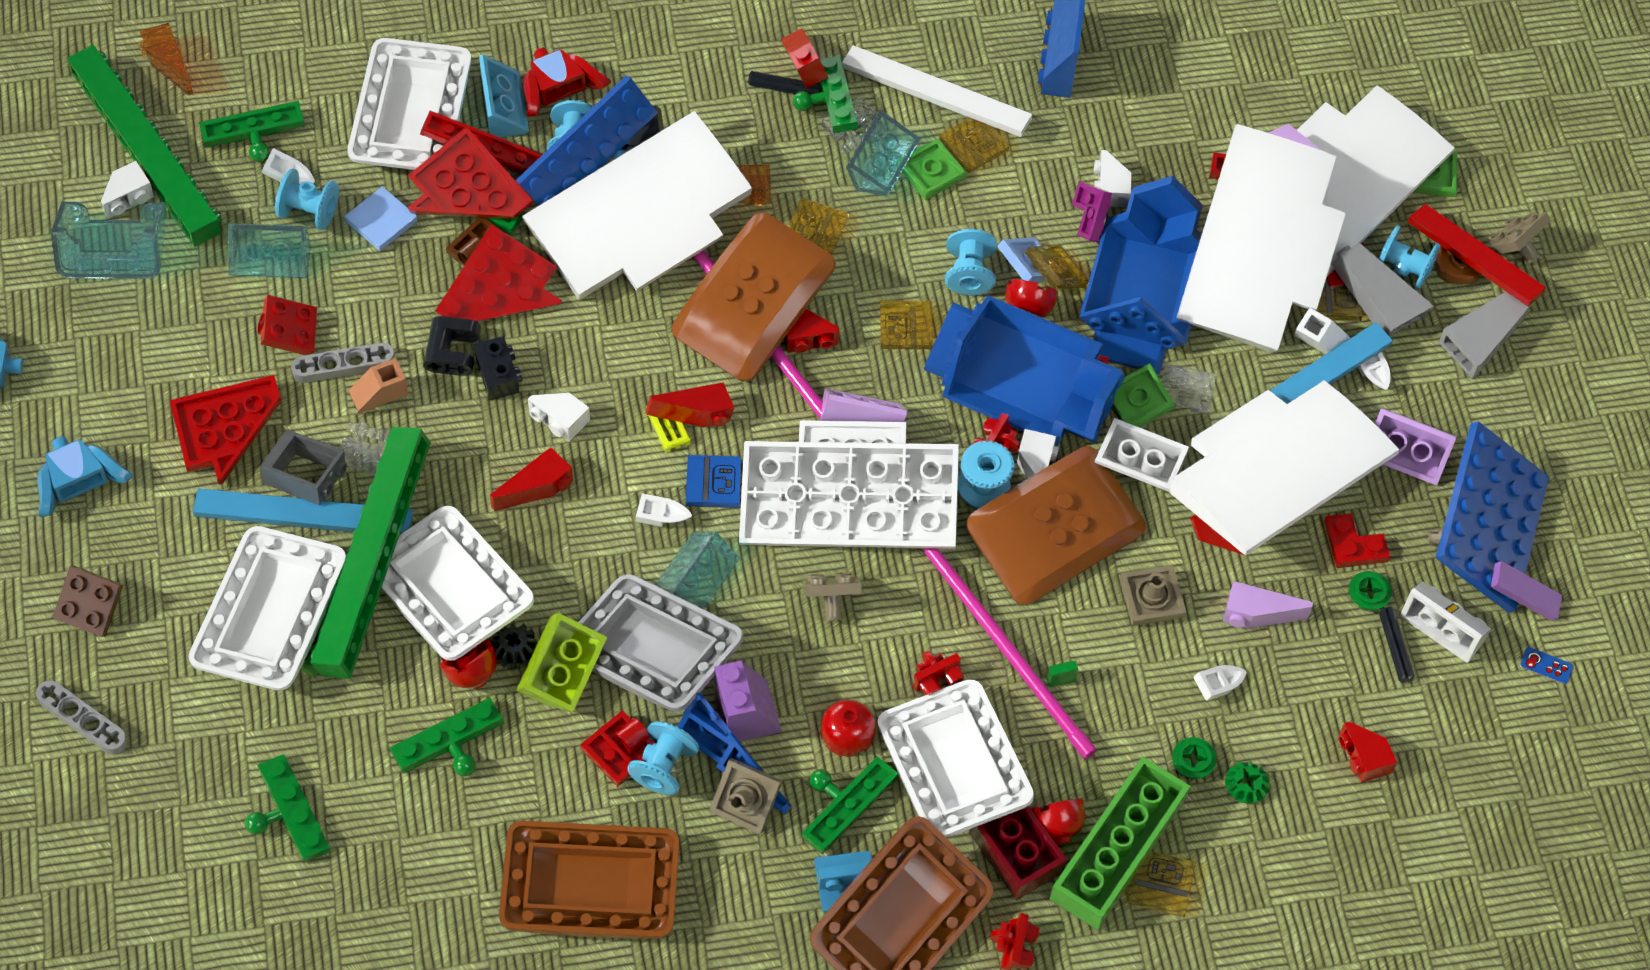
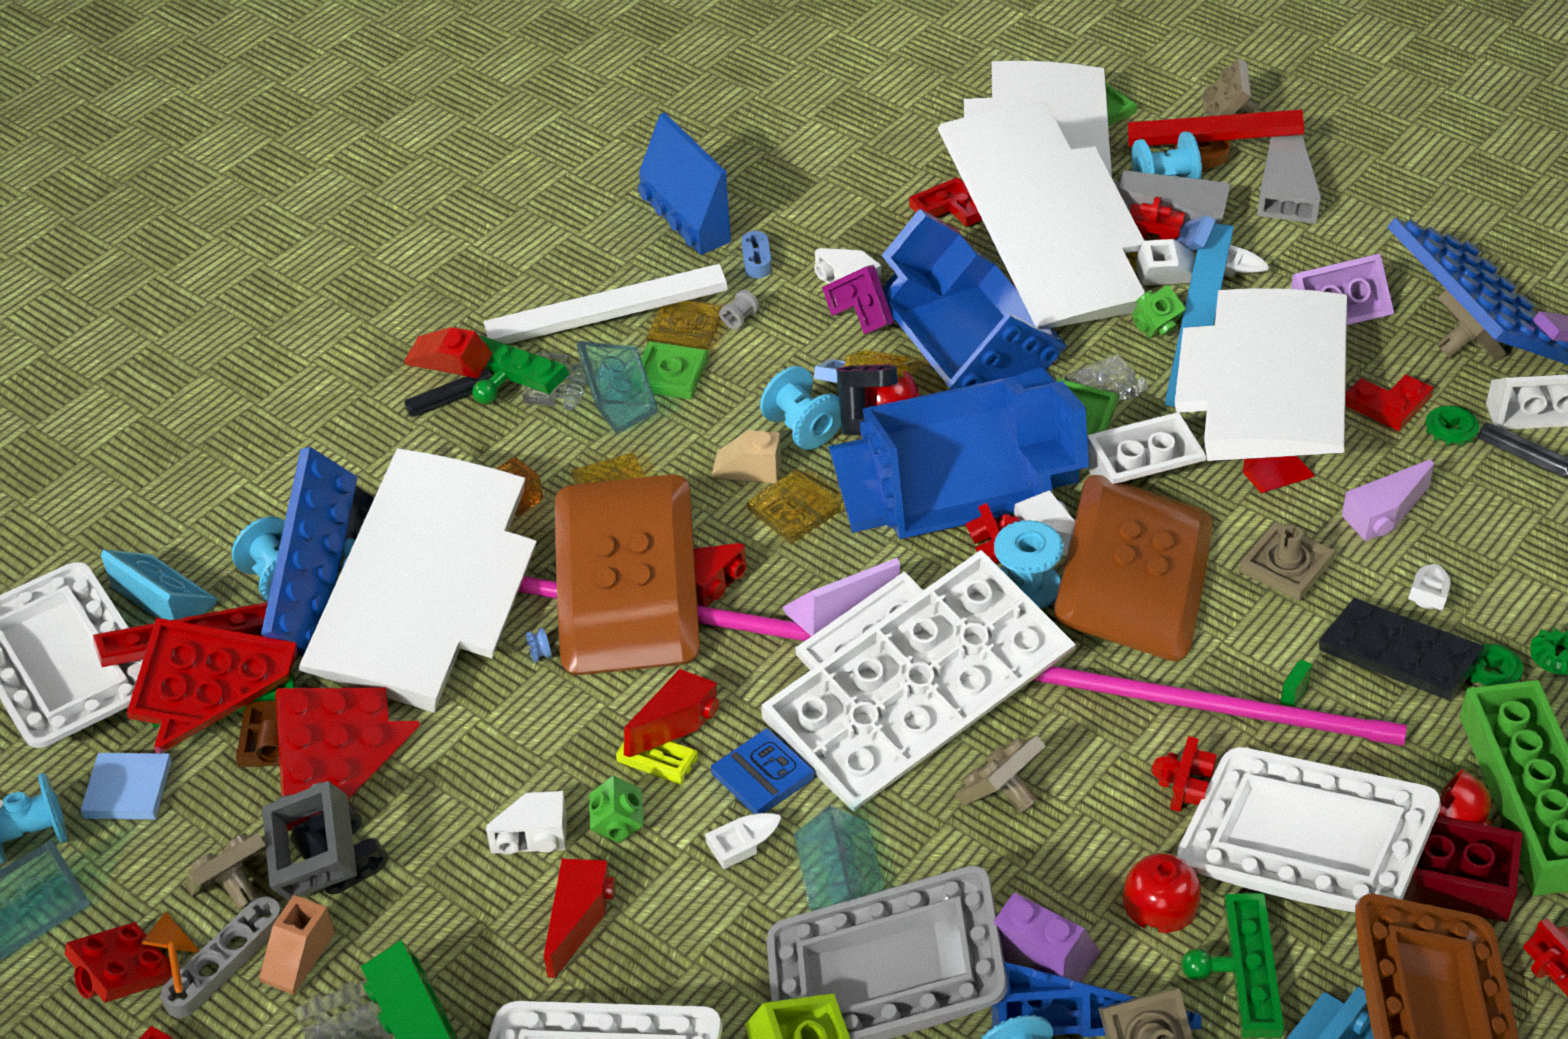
camera: 35 degrees left, 15 degrees down
(327, 330) = (169, 935): none -> orange piece
(381, 315) = (227, 869): none -> dark tan plate
(444, 342) = (318, 871): none -> dark grey window
(496, 368) = (414, 832): black brick -> none
(557, 77) = (205, 526): red torso -> none
(608, 440) = (616, 809): none -> bright green brick
(669, 303) = (539, 645): none -> medium blue bush
(911, 272) = (750, 457): none -> tan slope
(1004, 274) = (853, 392): none -> black connector
(1015, 157) = (739, 309): none -> light grey bush
(1068, 118) = (752, 254): none -> medium blue beam
(1151, 703) = (1402, 648): none -> black plate
(1280, 369) = (1158, 312): none -> bright green brick
(1346, 296) = (1157, 219): none -> red hips
(1358, 326) = (1195, 232): none -> medium blue tile

